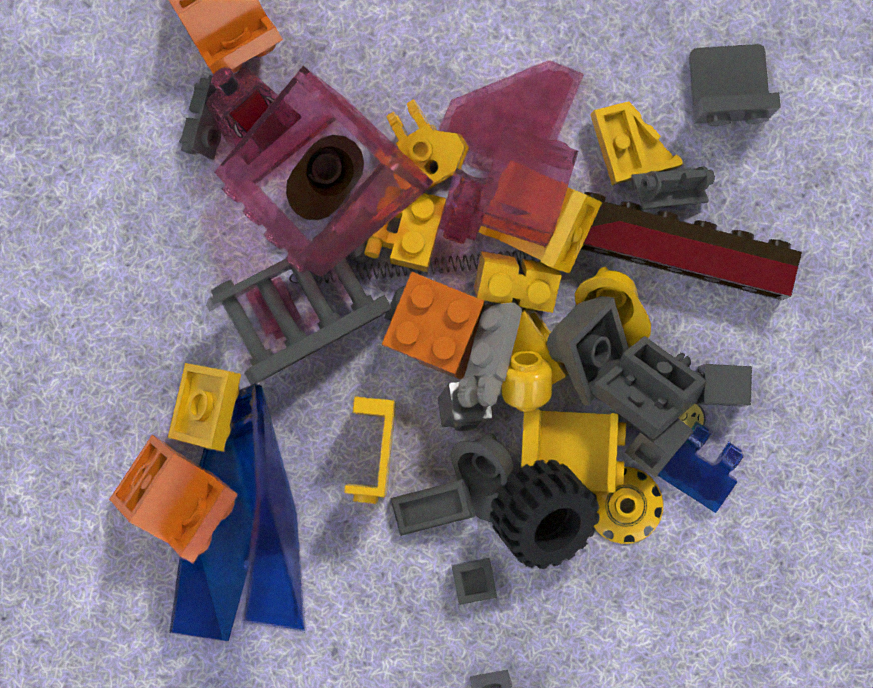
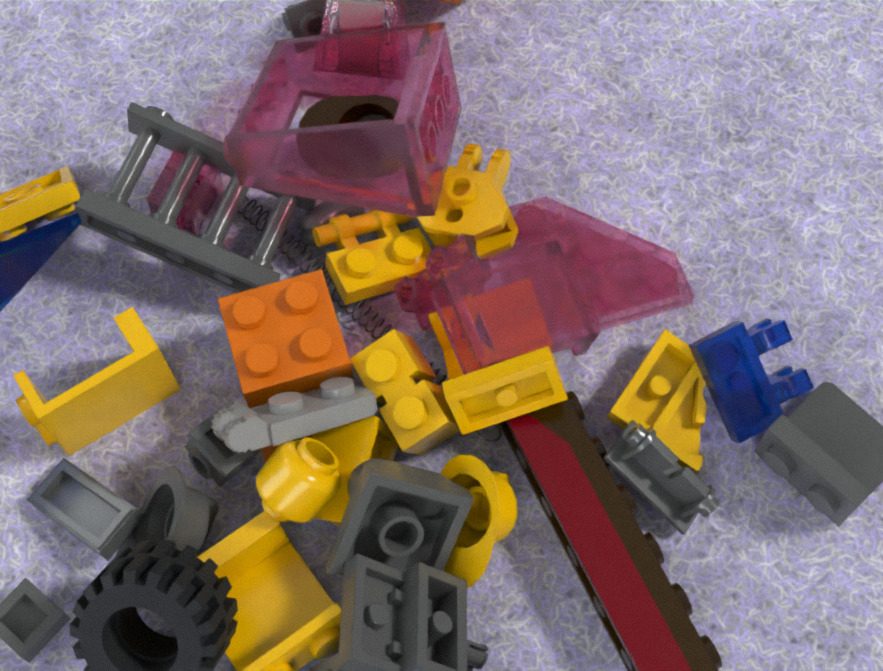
camera: 55 degrees right, 20 degrees down
(658, 99) = (738, 381): none -> clear blue plate

